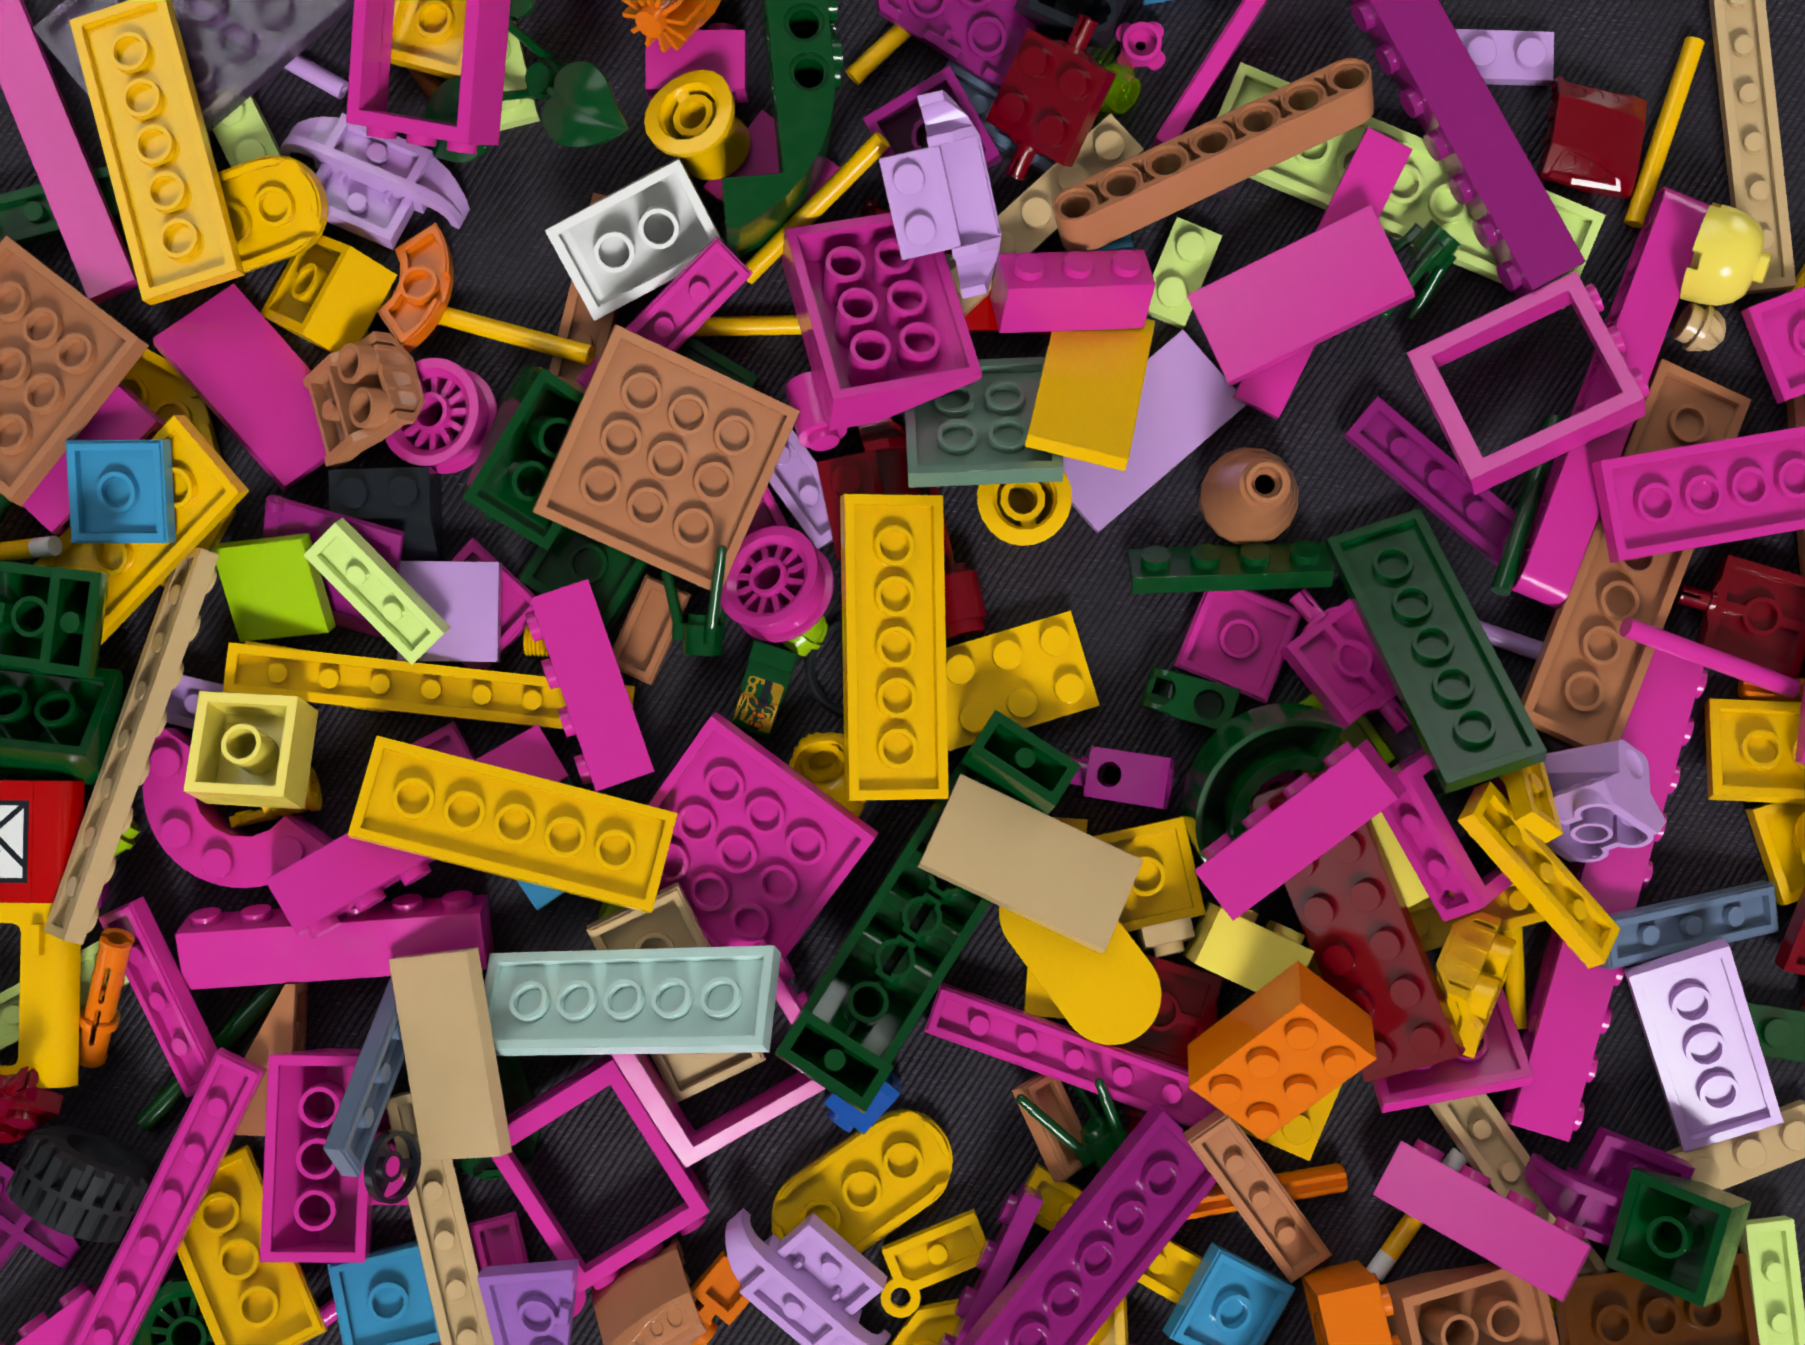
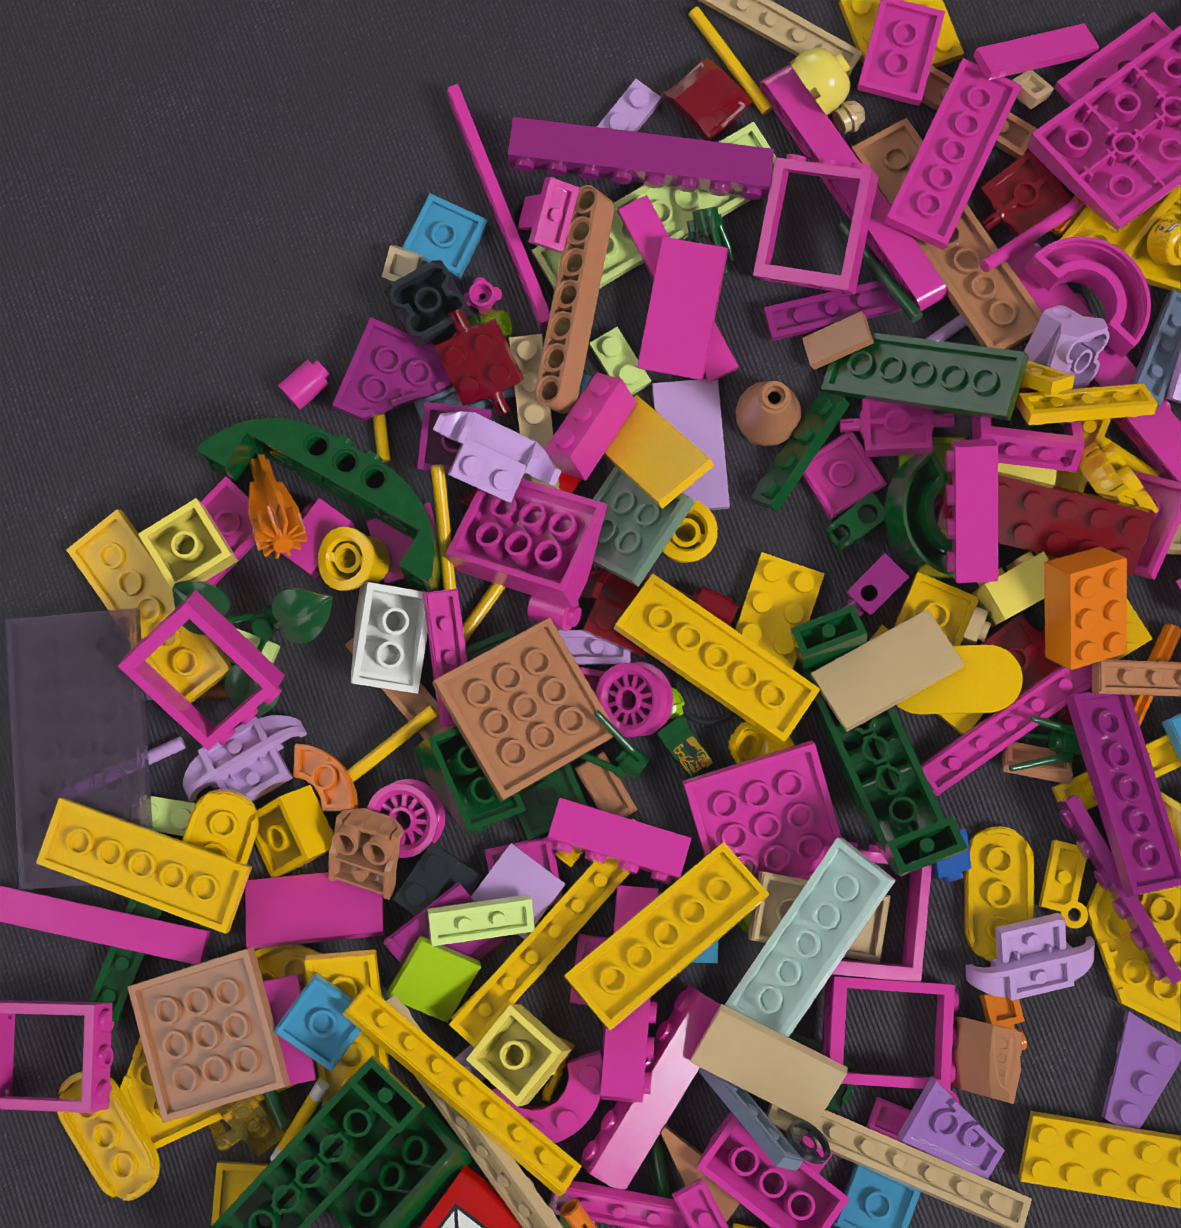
camera: 55 degrees left, 5 degrees down
(157, 712) = (462, 1090): none -> yellow tile
(1296, 45) = (547, 214): none -> dark pink piece
(1401, 515) = (837, 340): none -> nougat tile
(1730, 790) = (1109, 274): none -> dark pink brick

